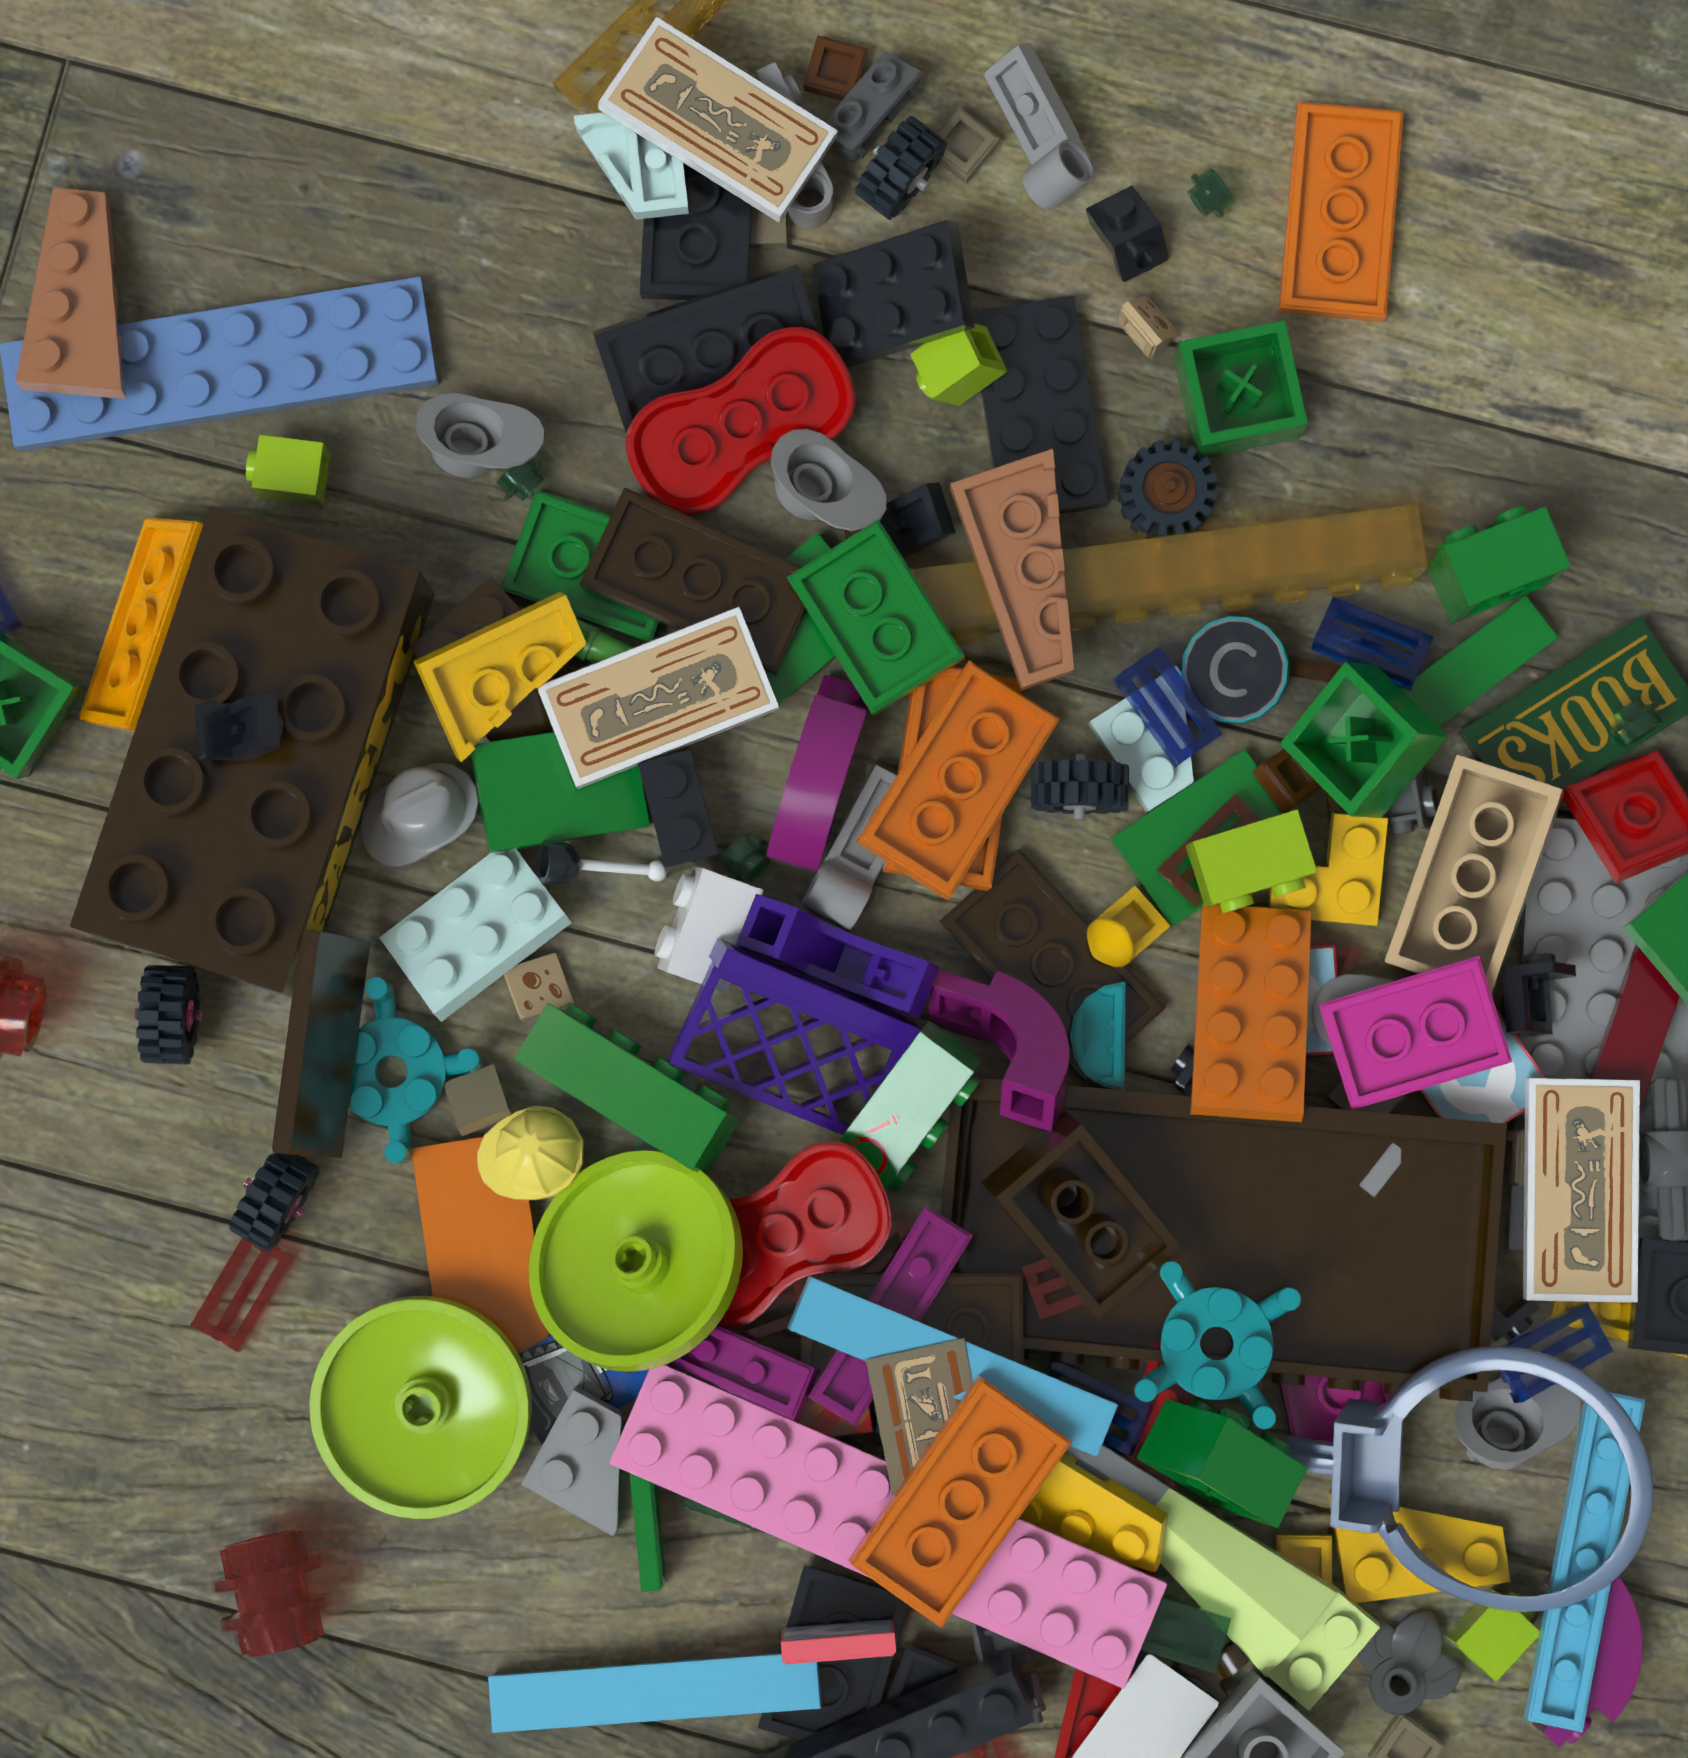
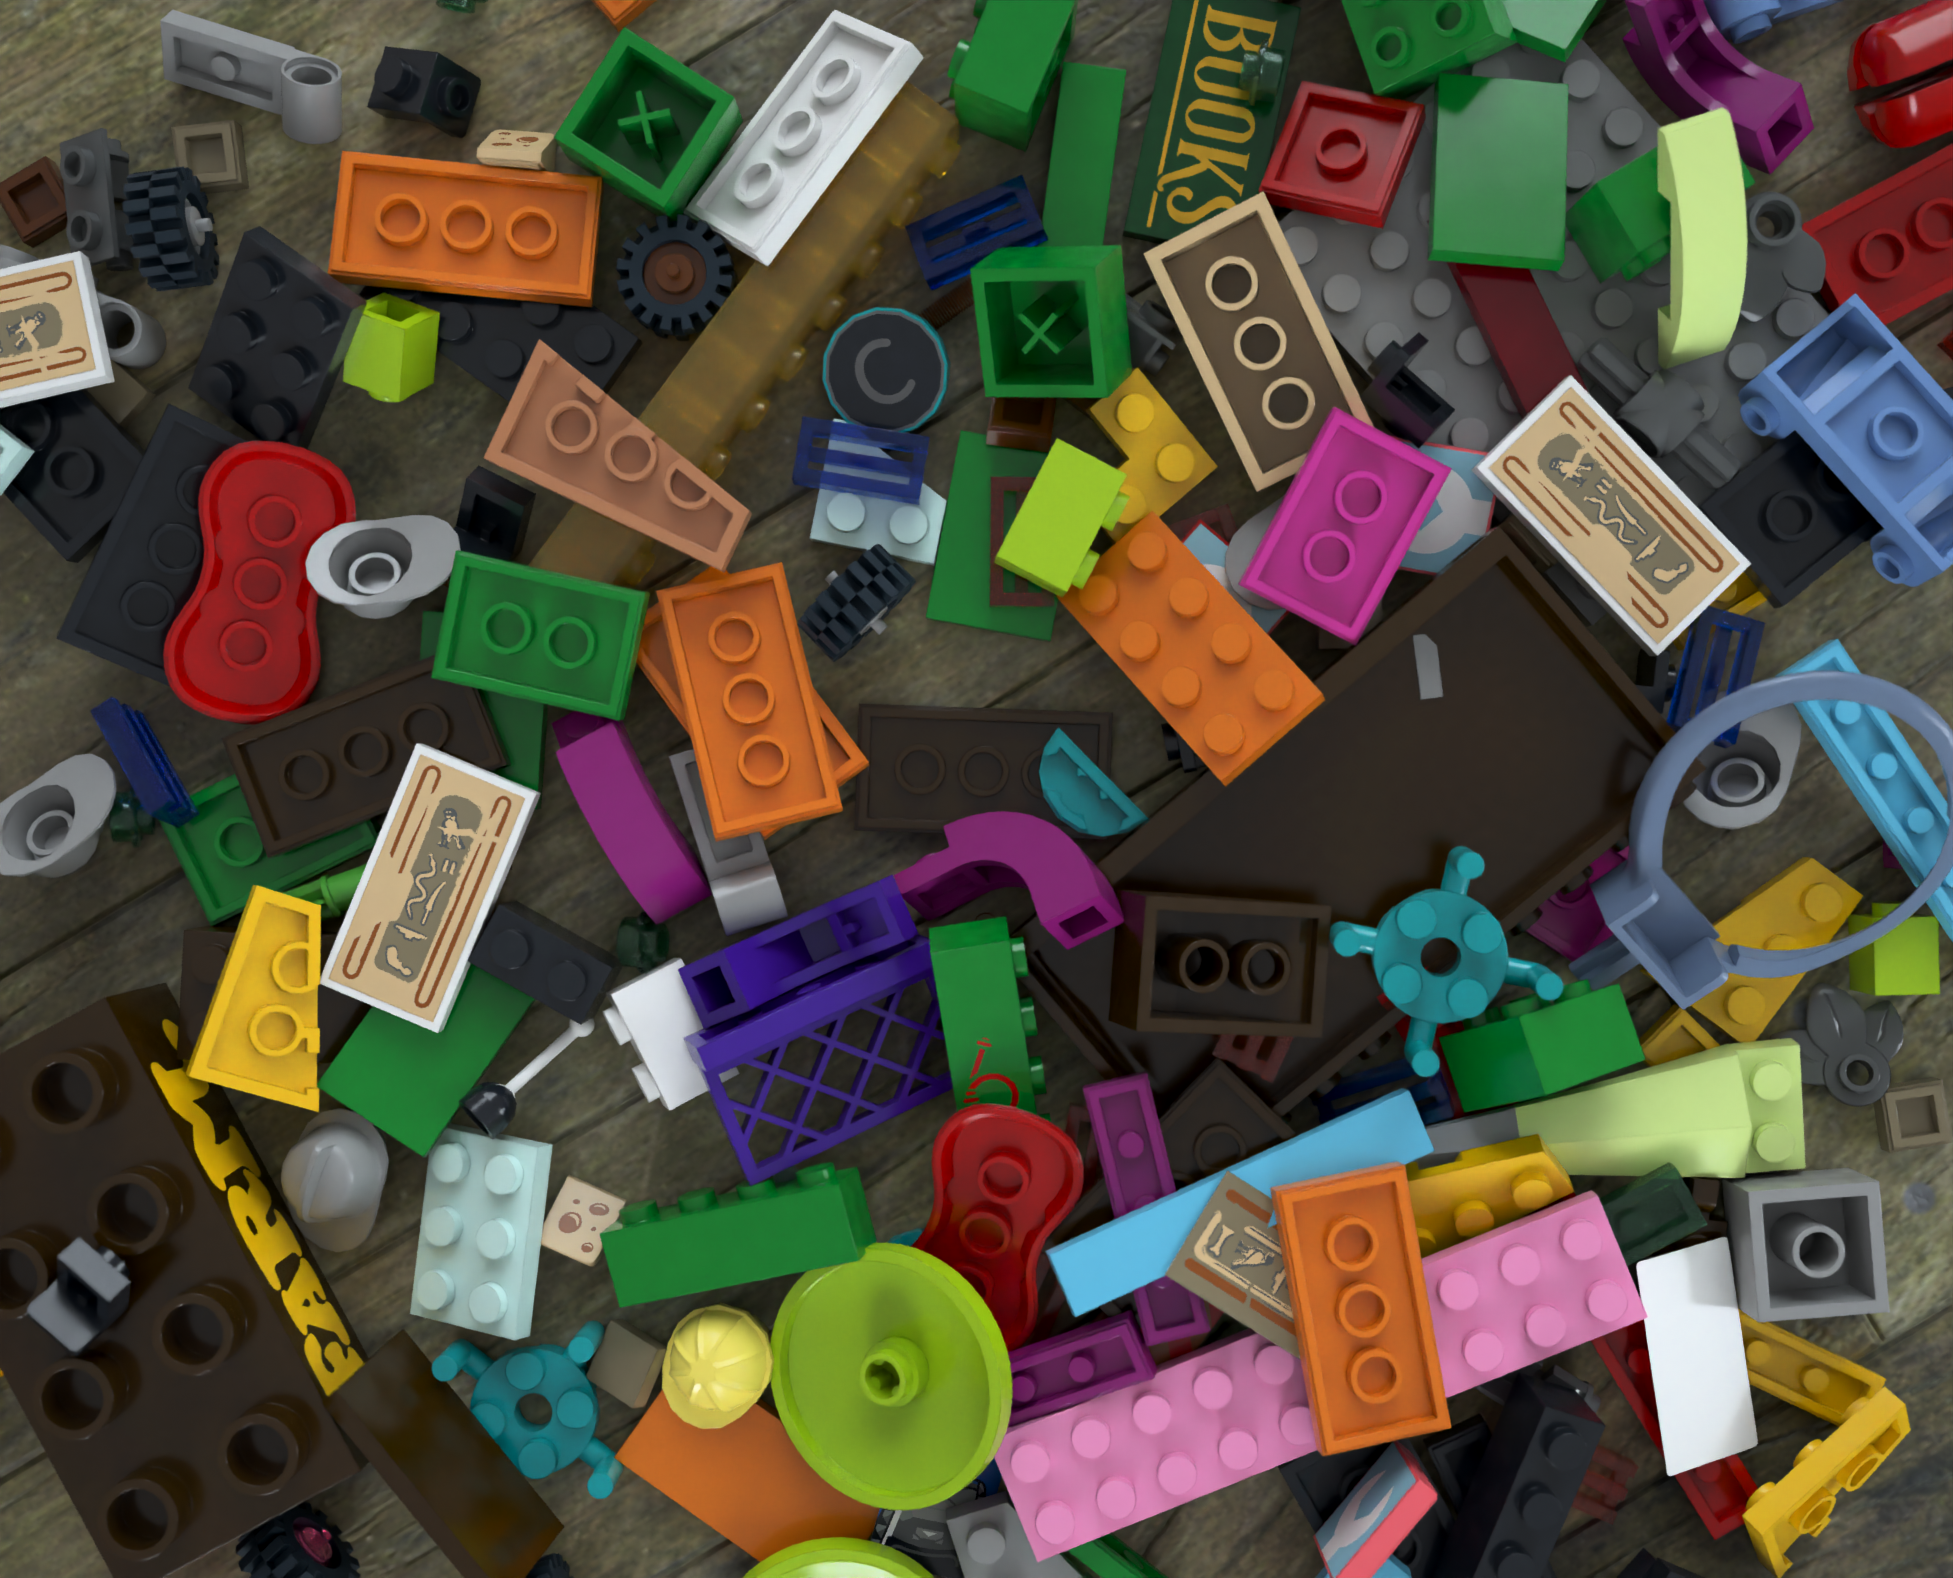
camera: 40 degrees left, 5 degrees up
(565, 455) = (145, 762): none -> clear blue tile
(1073, 340) = (466, 229): none -> orange tile
(1125, 929) = (1014, 682): yellow plate -> none
(1326, 484) = (803, 135): none -> white tile

